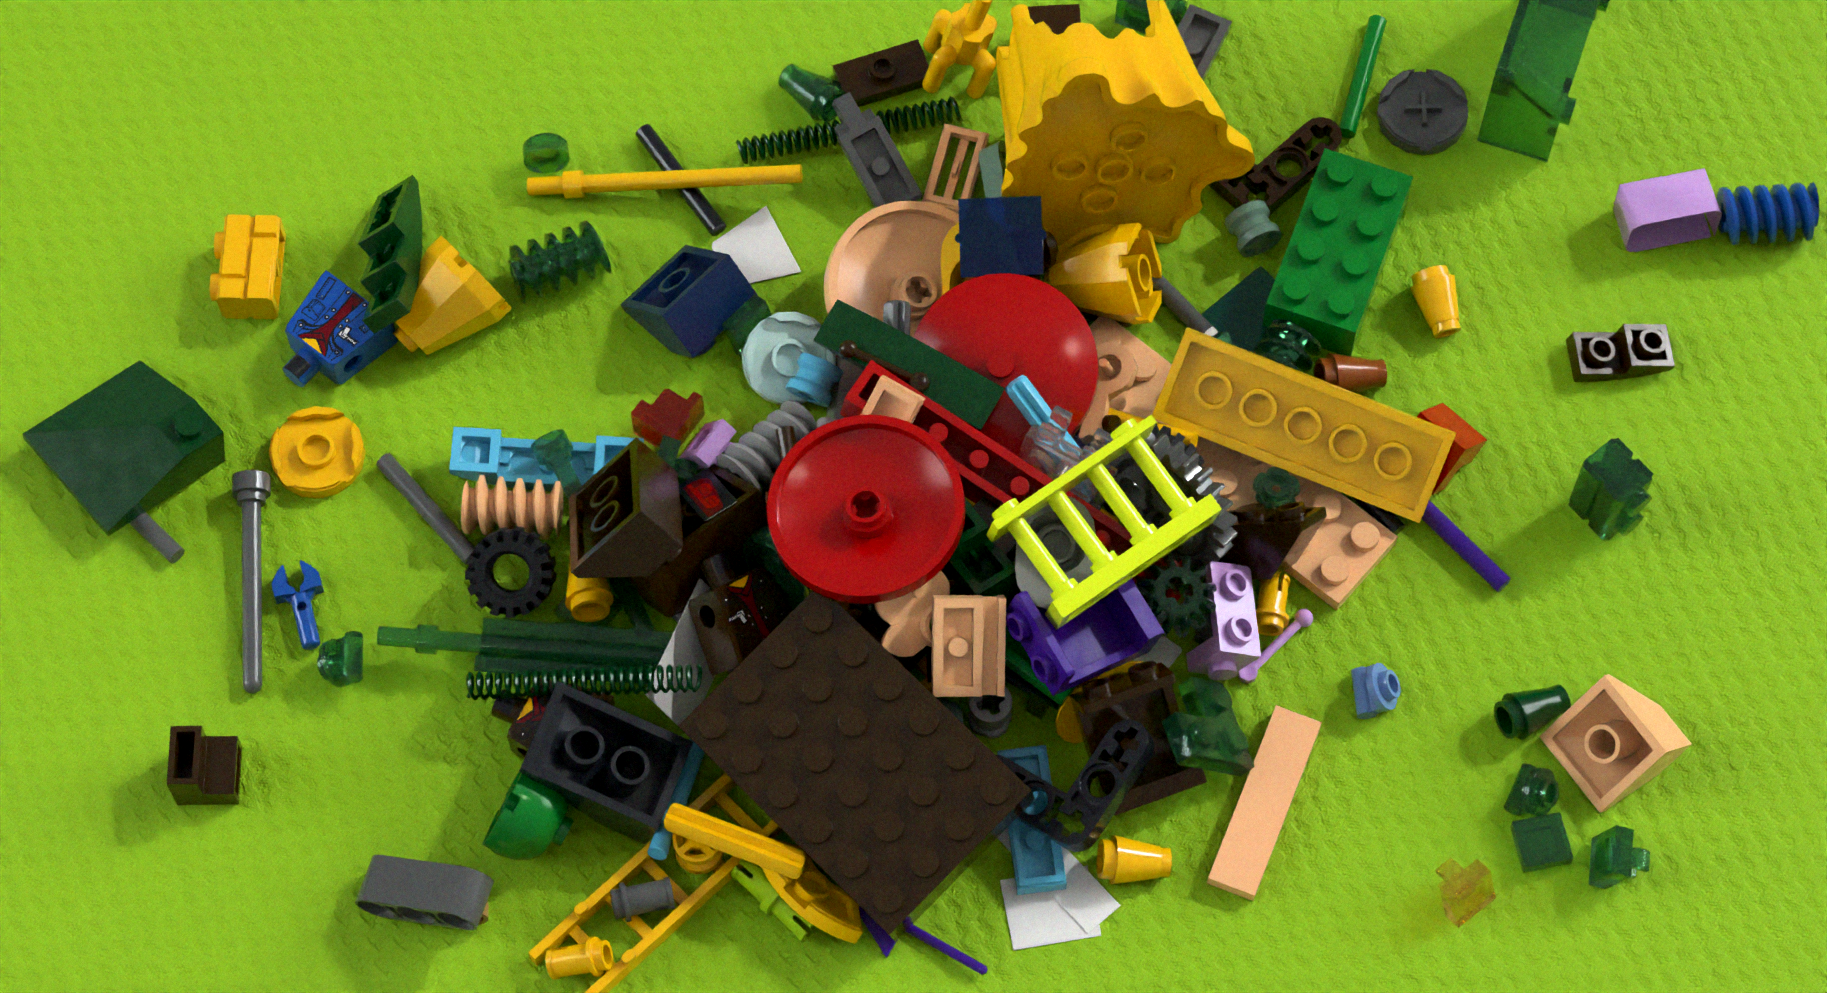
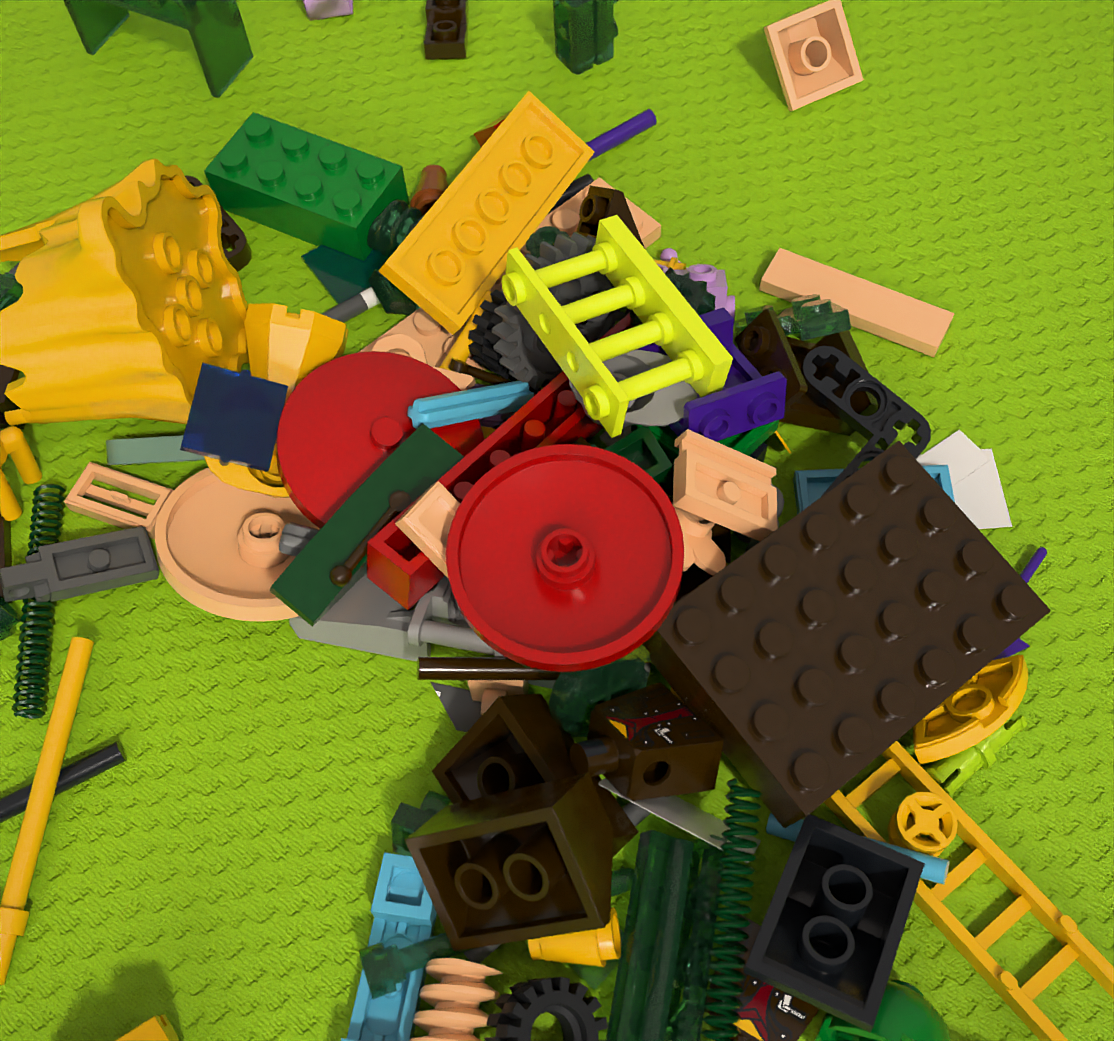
camera: 80 degrees left, 5 degrees down
(557, 260) = (109, 949): clear green piece -> none
(589, 957) = (1072, 988): yellow pin -> none
(641, 898) = (992, 902): dark grey pin -> none
(667, 416) = (357, 826): clear red panel -> none
(689, 300) = (207, 785): dark blue slope -> none
(706, 494) = (486, 767): sticker -> none
(709, 443) = (403, 774): lavender tile -> none
(735, 840) = (937, 773): yellow axle -> none
(744, 321) = (260, 718): clear green tile -> none
(757, 451) = (425, 708): light grey piece -> none
(758, 248) = (158, 715): white sticker -> none
(773, 353) = (310, 680): light aqua tile -> none
(814, 379) = (349, 645): medium azure wheel -> none
(1053, 456) = (503, 392): clear plate -> none
(1131, 860) = (924, 396): yellow cone -> none
(1253, 228) = (264, 249): sand green wheel -> none
(1362, 76) = (106, 156): green bar -> none
(1374, 690) = (747, 210): medium blue plate -> none
(1422, 111) = (179, 127): dark grey tile -> none
(1437, 299) = (372, 128): yellow cone -> none
(1465, 890) = (944, 162): clear yellow tile -> none
(1528, 711) = (776, 108): dark green cone -> none
(1533, 792) = (847, 114): clear green plate -> none
(1541, 842) = (892, 116): clear green tile -> none
(1615, 858) = (912, 66): clear green tile -> none

